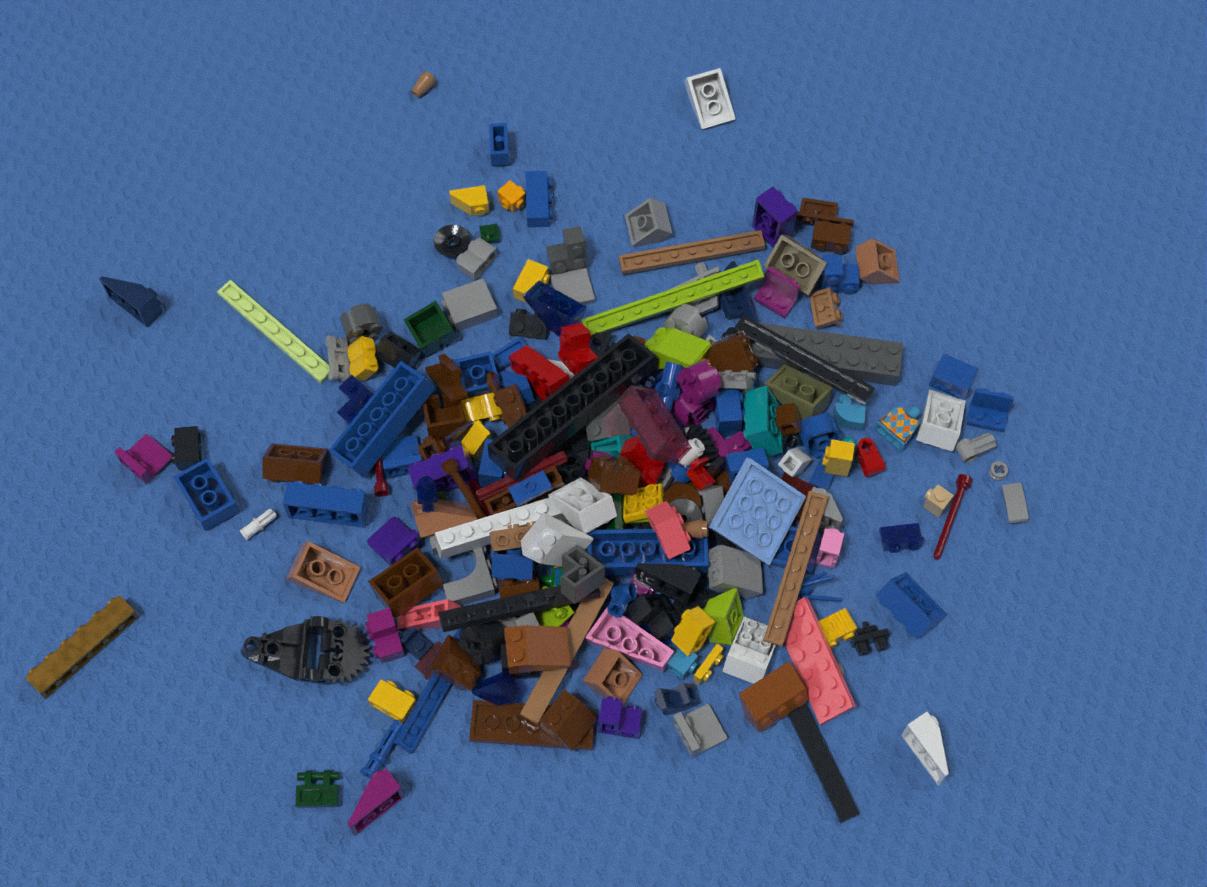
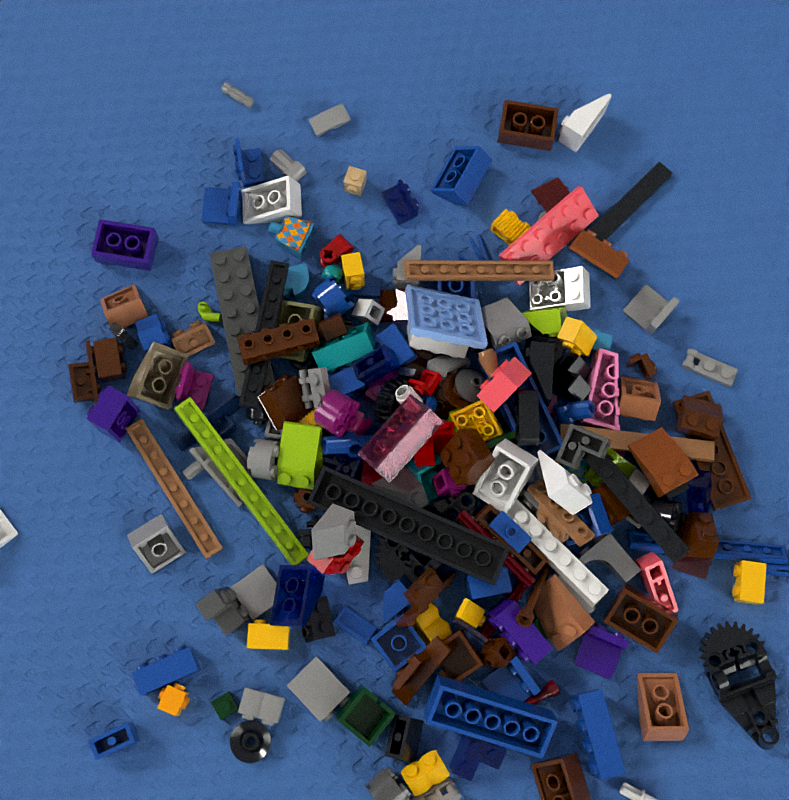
camera: 115 degrees left, 10 degrees up
(384, 632) = (697, 616): magenta brick -> none
(415, 643) = (686, 586): dark blue bracket -> none
(426, 493) = (560, 628): clear blue hips -> none
(471, 200) = (193, 741): yellow slope -> none
(541, 374) = (376, 578): red wedge -> none
(591, 338) = (333, 533): none -> light grey slope
(615, 764) = (709, 368): none -> light grey plate
(618, 719) = (675, 377): dark purple brick -> none
(628, 539) = (526, 417): none -> black beam
(642, 699) = (646, 366): none -> reddish brown bracket
(676, 699) = (633, 336): dark blue brick -> none
(704, 671) = (593, 322): yellow plate -> none
(733, 434) = (375, 364): none -> clear blue brick
(788, 362) = (278, 341): none -> reddish brown brick
(829, 548) = (442, 249): bright pink piece -> none
(849, 249) = (123, 336): none -> clear smoke beam
(849, 329) = (207, 313): none -> lime arm
(861, 686) = (550, 193): none -> clear red piece
(866, 636) = (505, 200): black hips -> none
(938, 280) = (124, 245): none -> dark purple brick
(945, 688) = (528, 125): none -> reddish brown brick
(963, 483) = (327, 167): dark red piece -> none
(998, 477) = (299, 138): light grey bush -> none
(1071, 430) = (238, 95): none -> light grey axle

